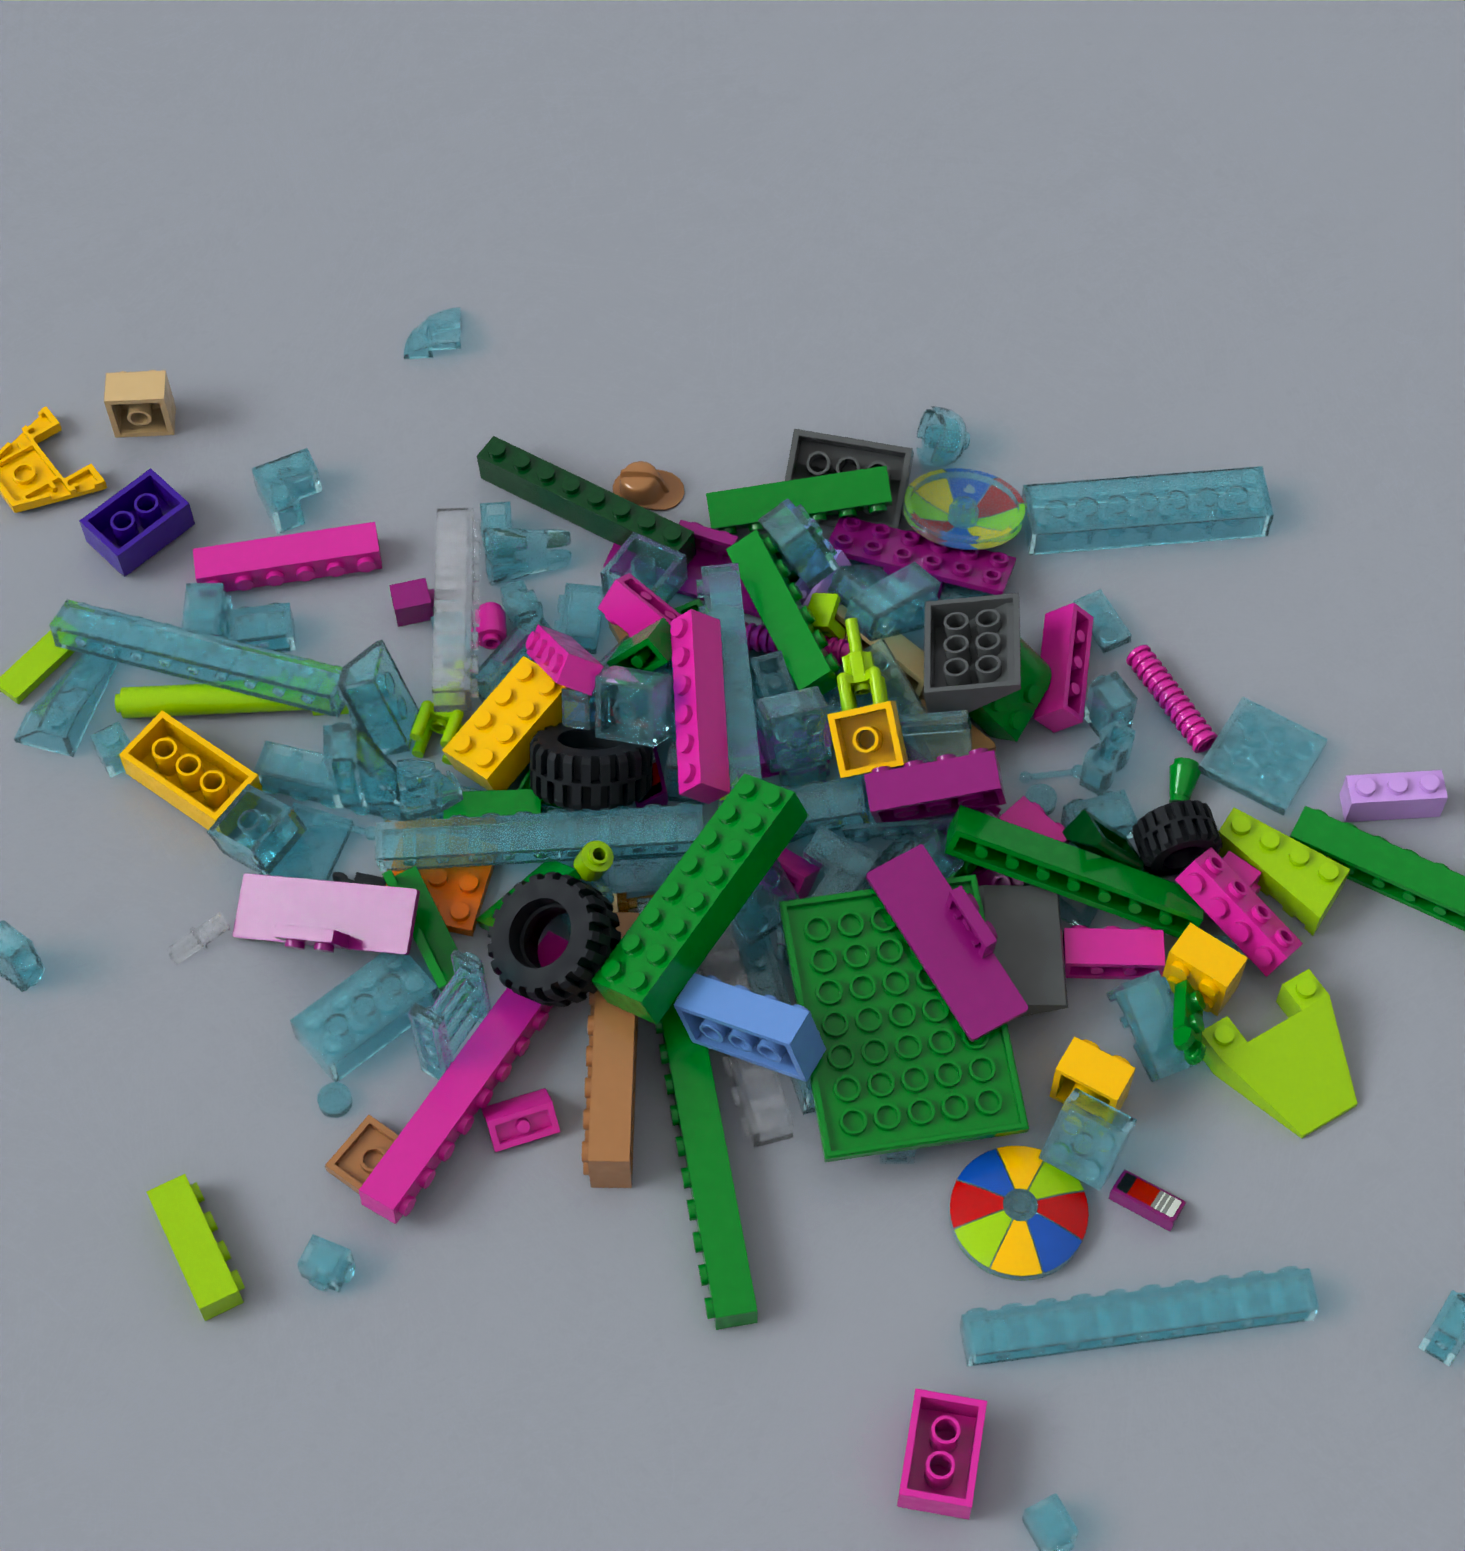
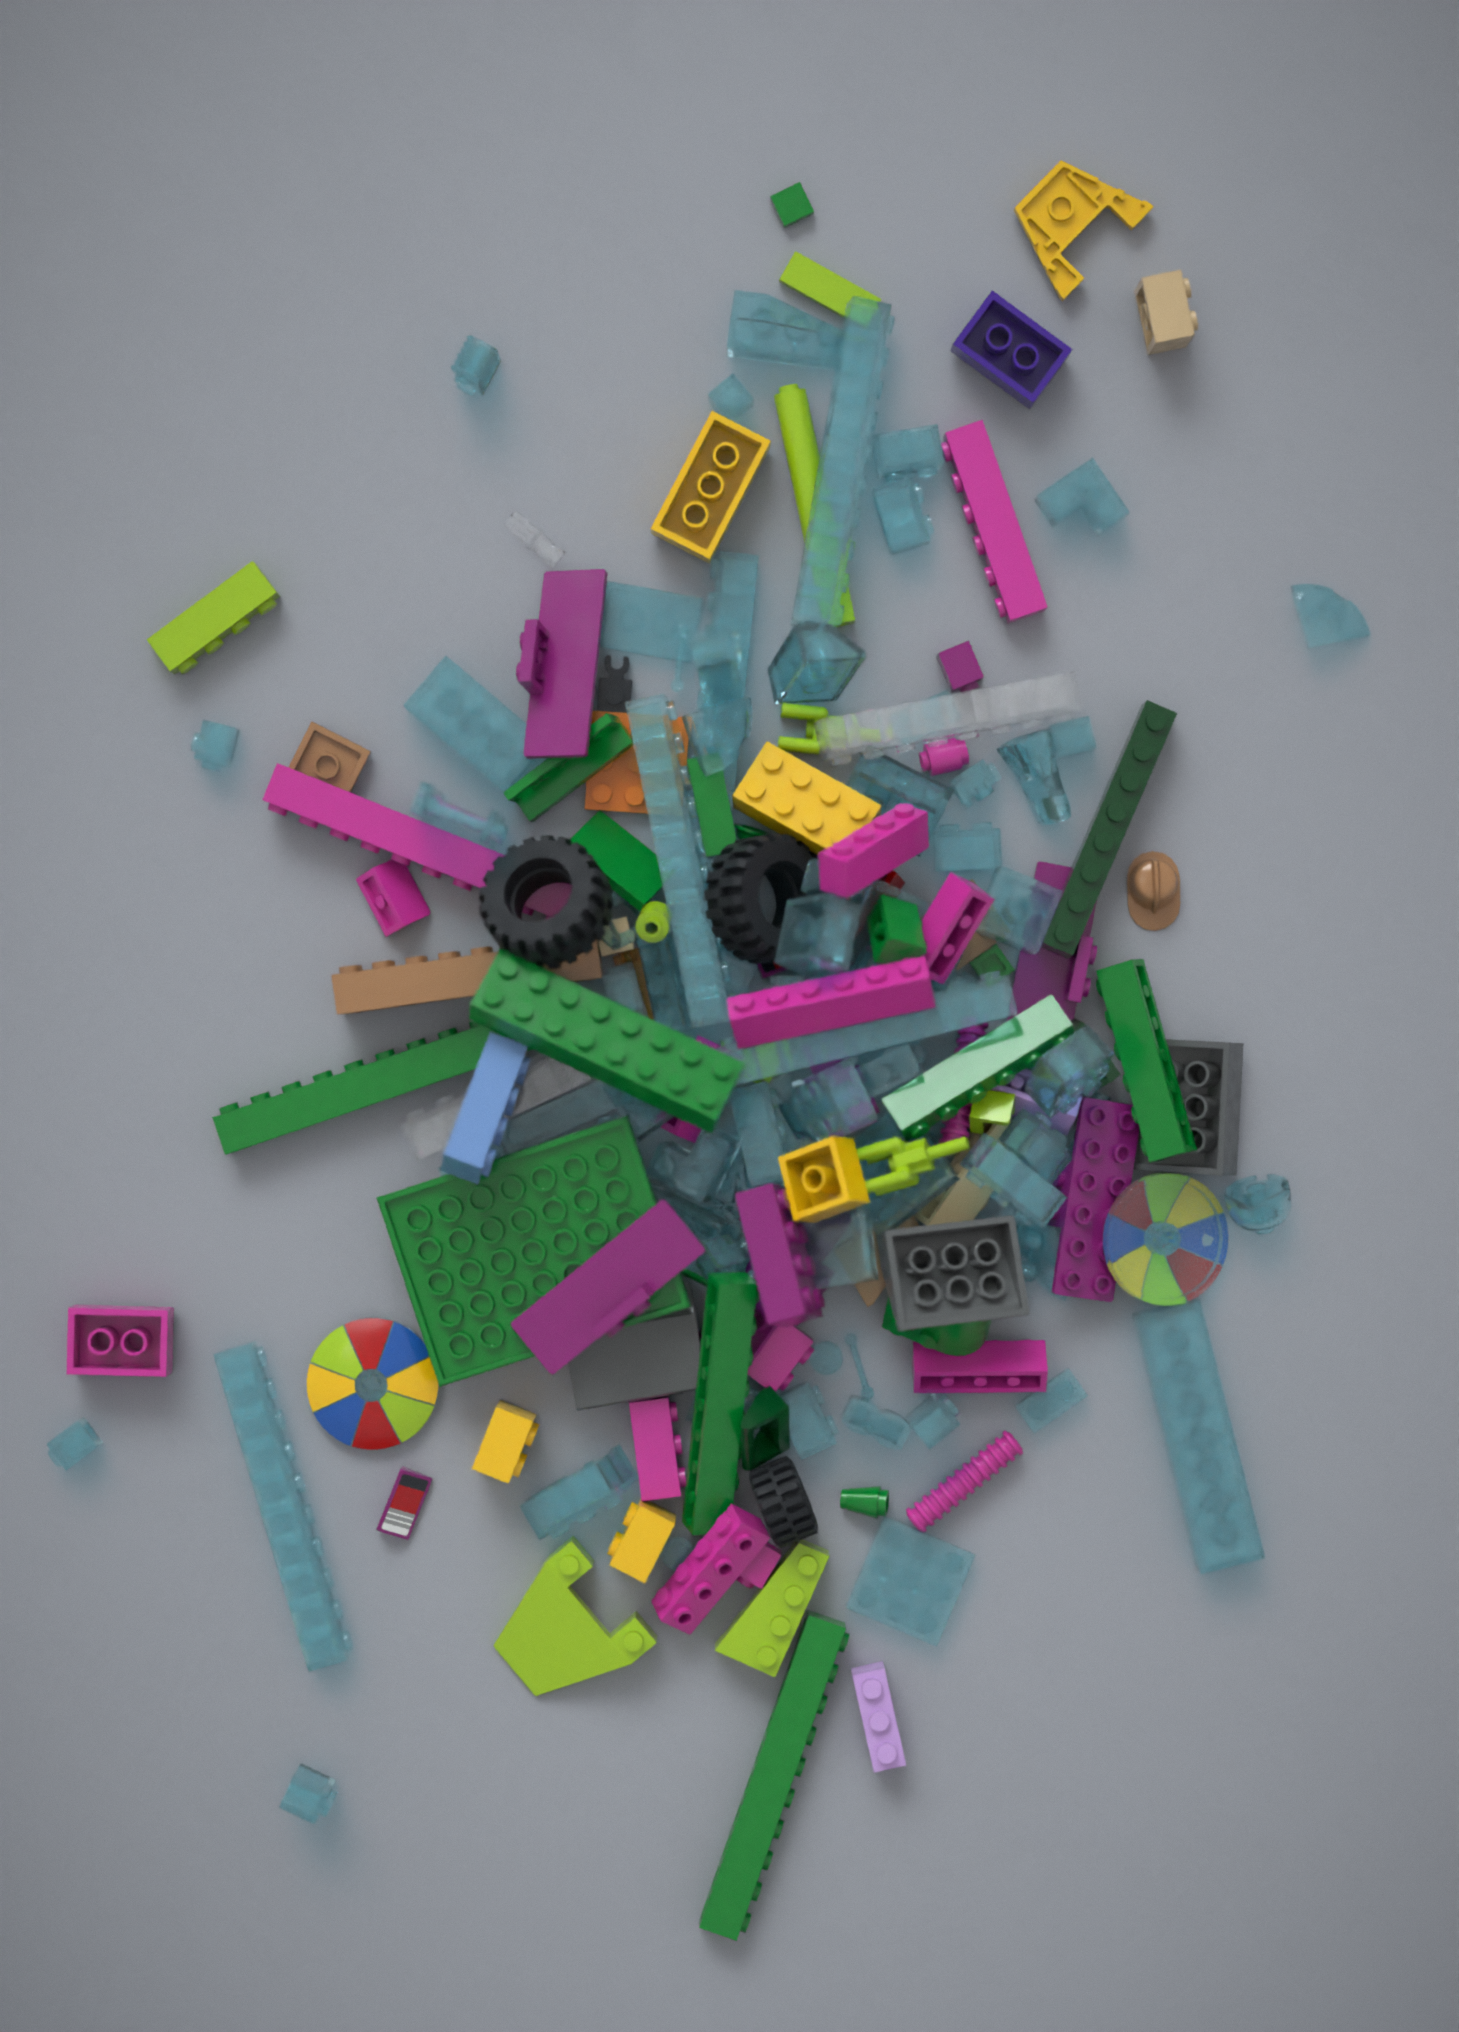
camera: 80 degrees right, 30 degrees up
(257, 830) = (650, 572): clear light blue brick -> none
(334, 1100) = (386, 713): clear light blue tile -> none
(1087, 1138) = (442, 1443): clear light blue brick -> none
(1188, 1022) = (572, 1530): green hinge -> none

